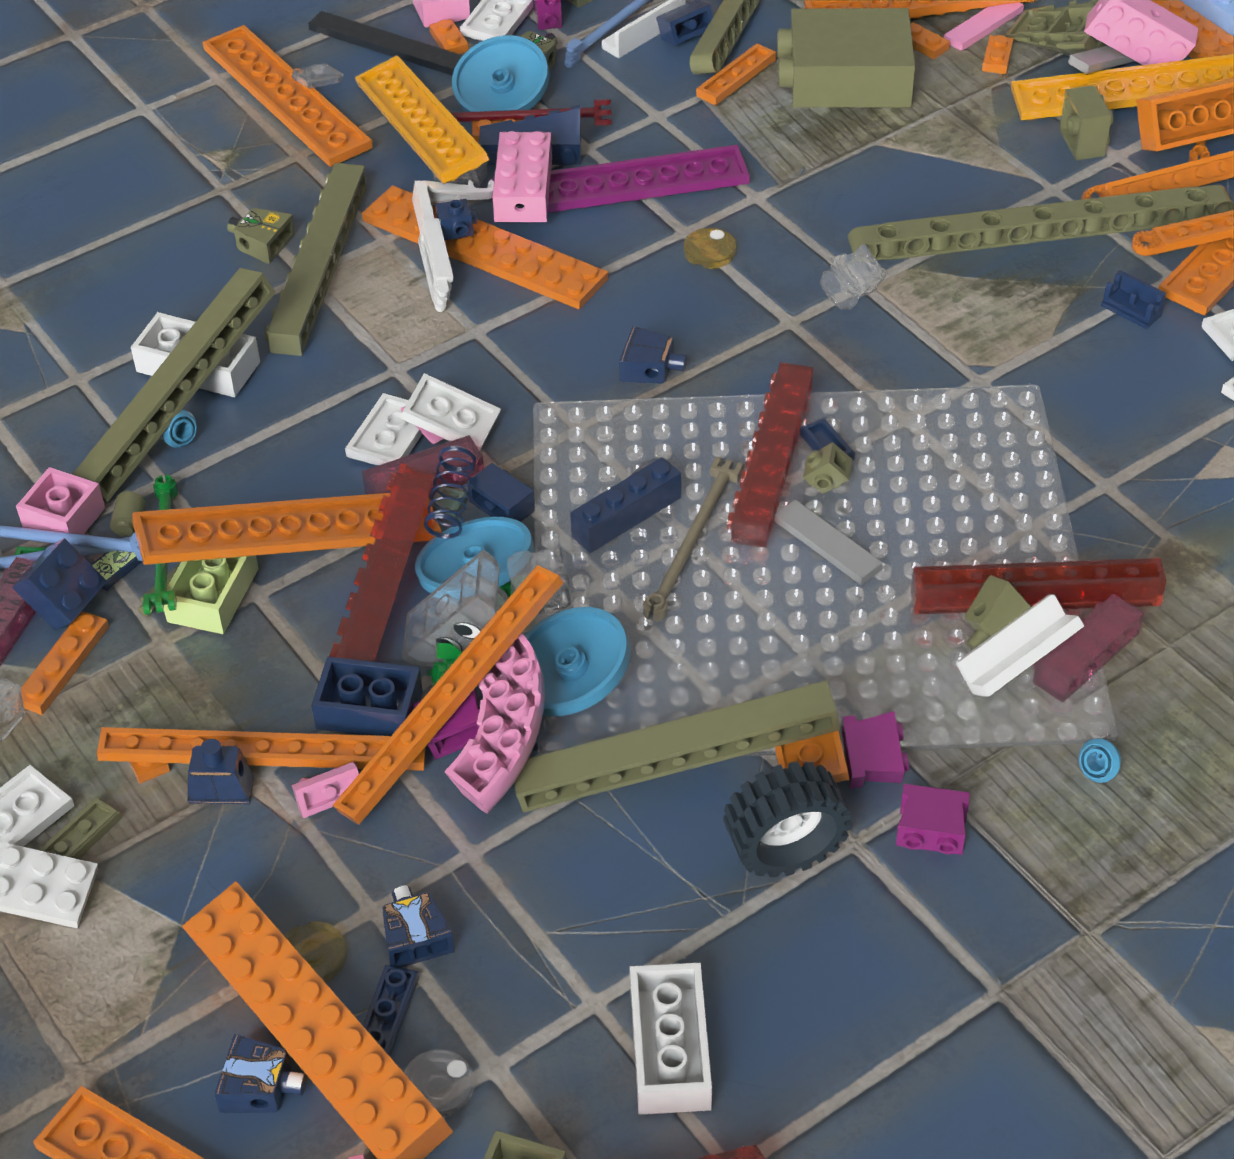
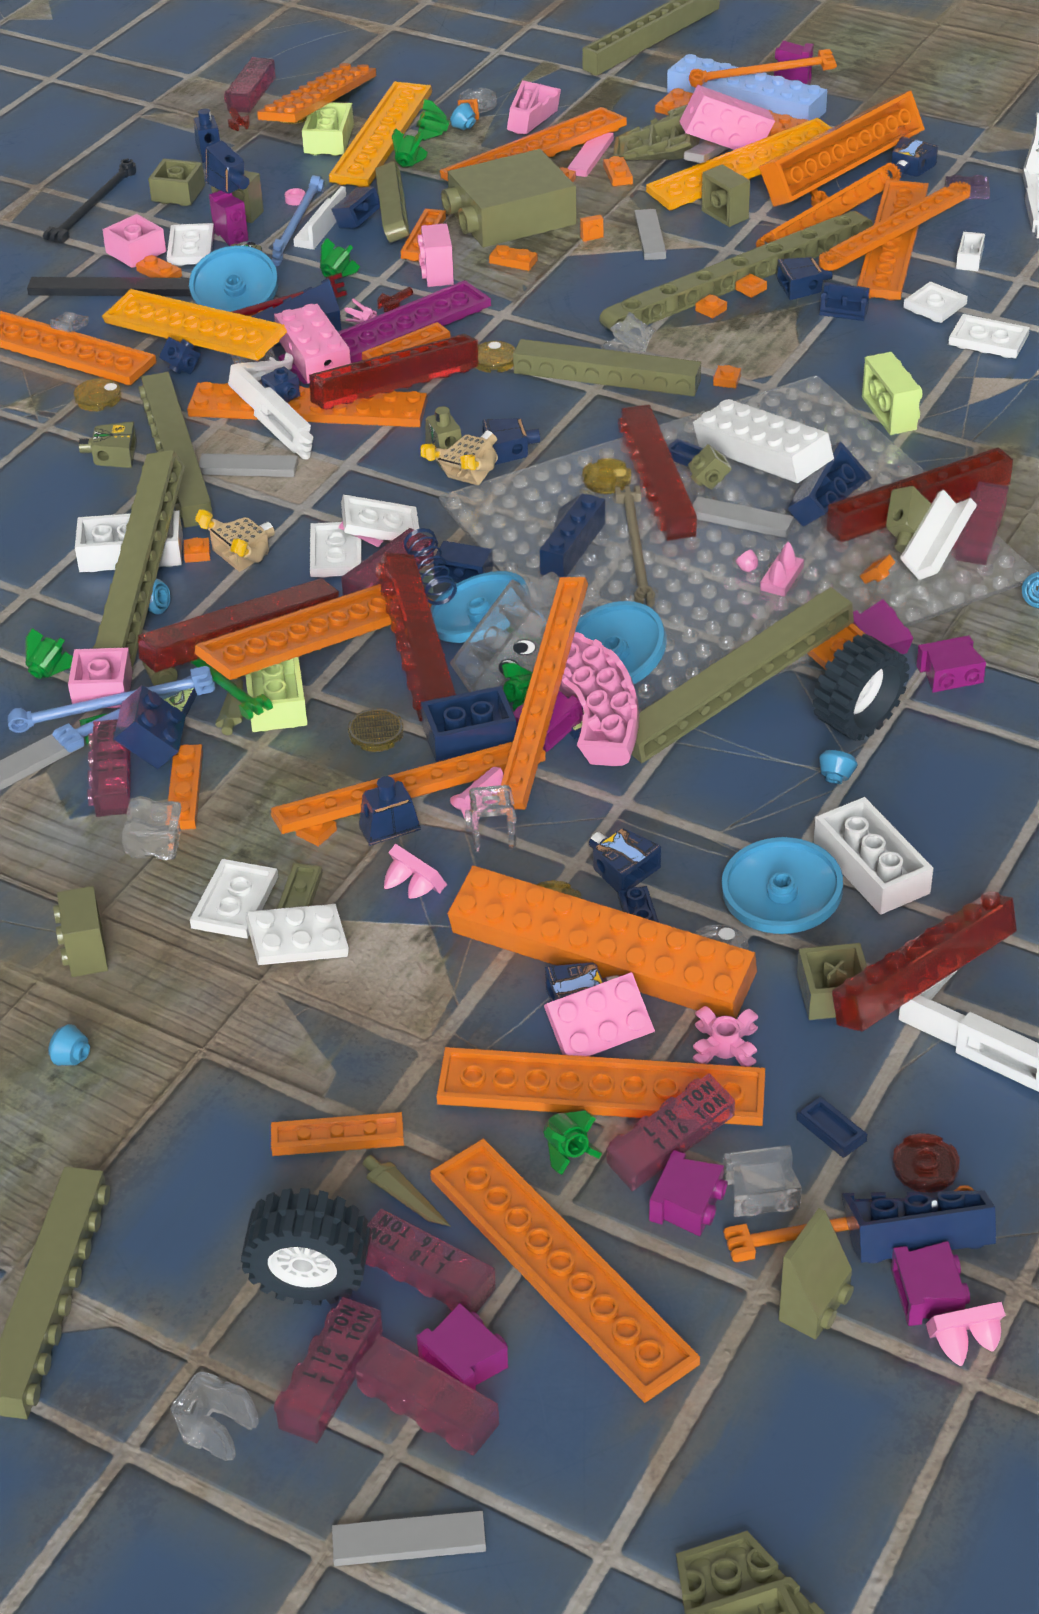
camera: 25 degrees left, 5 degrees down
(29, 461) = (45, 656): none -> green brick
(199, 847) = (405, 865): none -> bright pink tile
(217, 488) = (177, 642): none -> clear red brick
(249, 1120) = (599, 1017): none -> bright pink plate
(261, 384) = (196, 550): none -> orange plate
(284, 665) = (375, 729): none -> tile
(292, 167) = (96, 394): none -> clear yellow tile
(301, 388) = (238, 541): none -> tan torso
(321, 823) = (478, 808): none -> clear piece
(377, 299) = (248, 465): none -> light grey tile
(392, 149) = (179, 355): none -> dark blue brick
(547, 1036) = (782, 885): none -> dark azure dish
(579, 237) = (393, 371): none -> clear red brick
(580, 324) = (442, 430): none -> olive torso
(584, 369) = (467, 459): none -> tan torso
(609, 156) = (359, 316): none -> bright pink piece
(620, 82) = (336, 260): none -> green brick
(626, 206) = (419, 337): none -> orange plate
(648, 148) = (392, 302): none -> clear red bar
(714, 904) = (837, 766): none -> dark azure cone
(720, 438) = (606, 475): none -> clear yellow tile
(723, 106) = (436, 255): none -> bright pink brick
(793, 602) = (747, 561): none -> bright pink hinge
(812, 130) = (513, 258): none -> orange plate
(816, 302) = (607, 367): none -> olive brick
(822, 631) = (782, 572): none -> bright pink tile
(899, 458) = (764, 440): none -> white brick
(917, 118) = (591, 228): none -> orange plate
(927, 666) = (878, 569): none -> orange plate
(941, 353) = (727, 376): none -> orange plate
(946, 534) = (828, 485): none -> dark blue wedge
(978, 144) = (650, 234): none -> light grey tile
(984, 257) = (711, 306): none -> orange plate
(1044, 245) = (751, 285): none -> orange plate
(1099, 439) = (891, 393): none -> yellowish green brick
(1107, 251) = (801, 276): none -> dark blue torso

